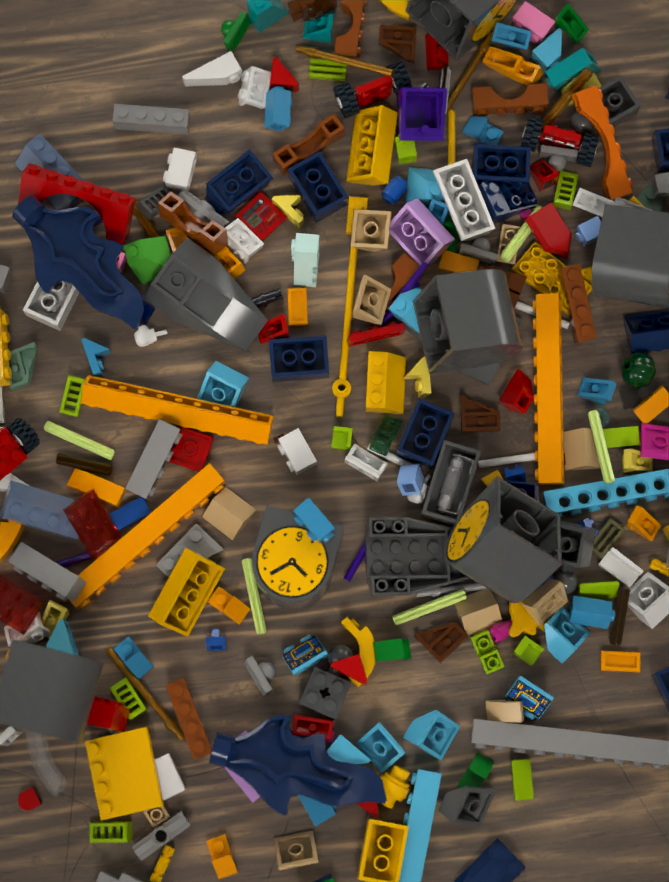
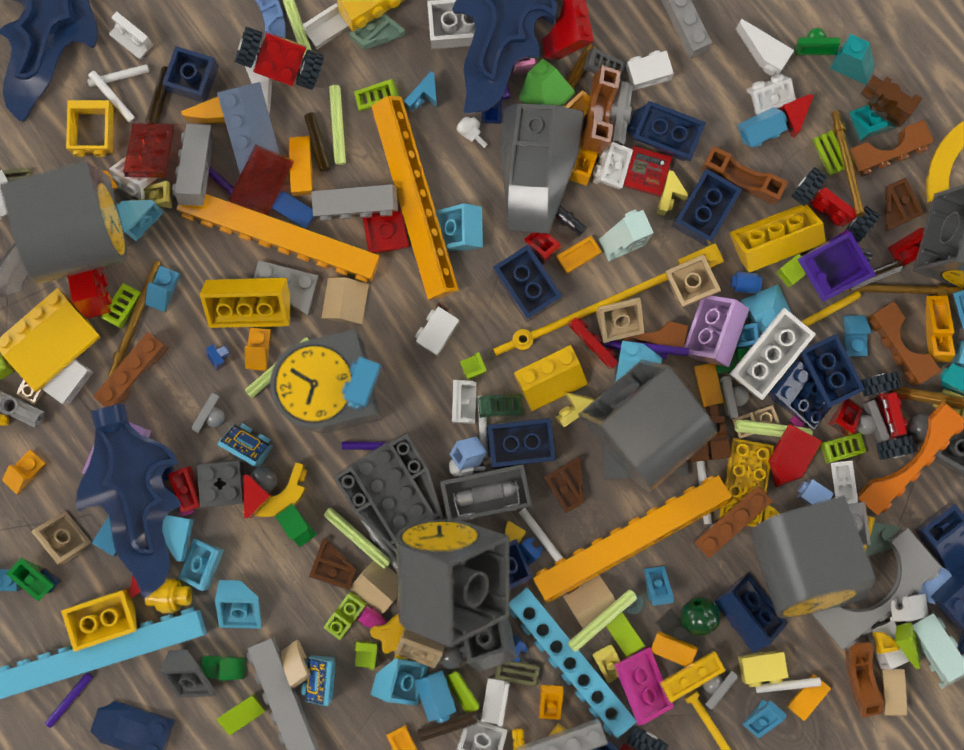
camera: 60 degrees right, 5 degrees up
(518, 393) = (611, 511): red slope -> none

